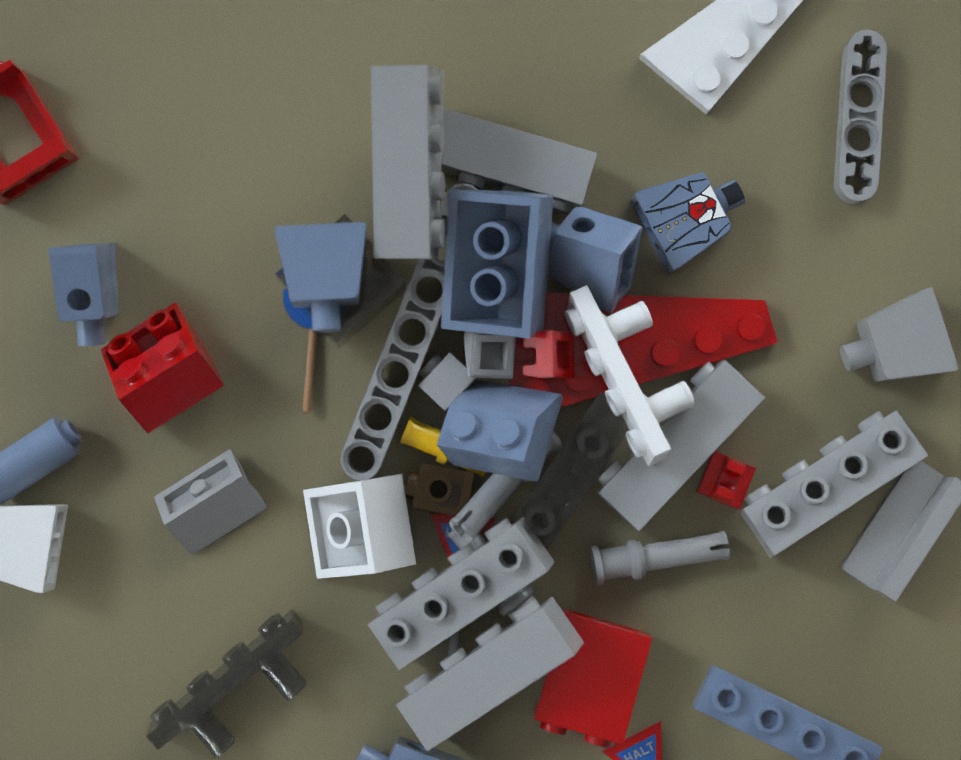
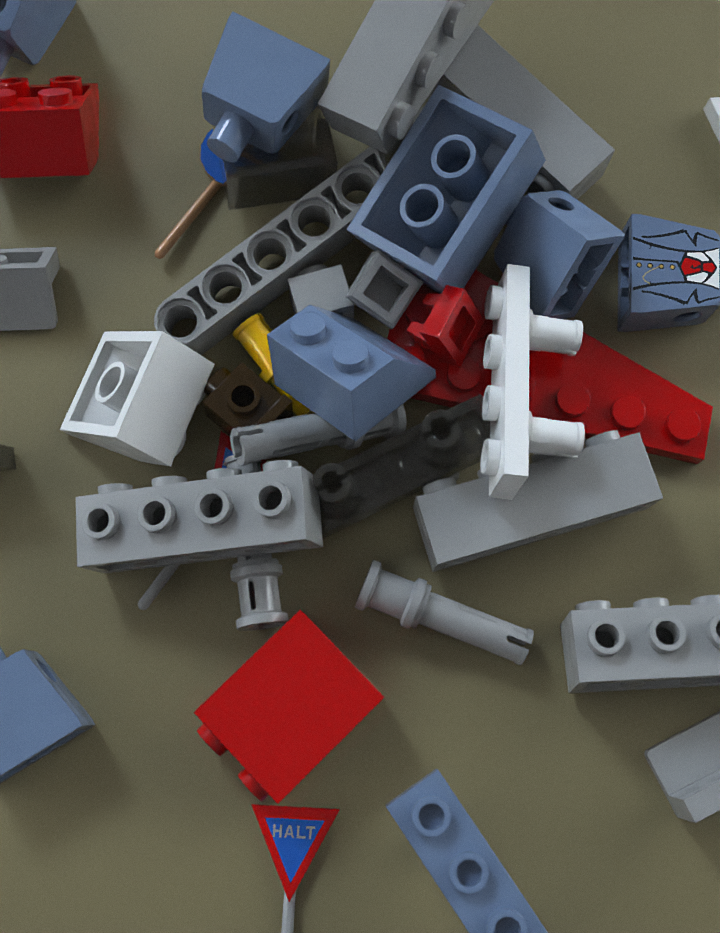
camera: 30 degrees right, 10 degrees down
(489, 673) = (175, 624): light grey brick -> none
(726, 480) = (565, 576): red tile -> none

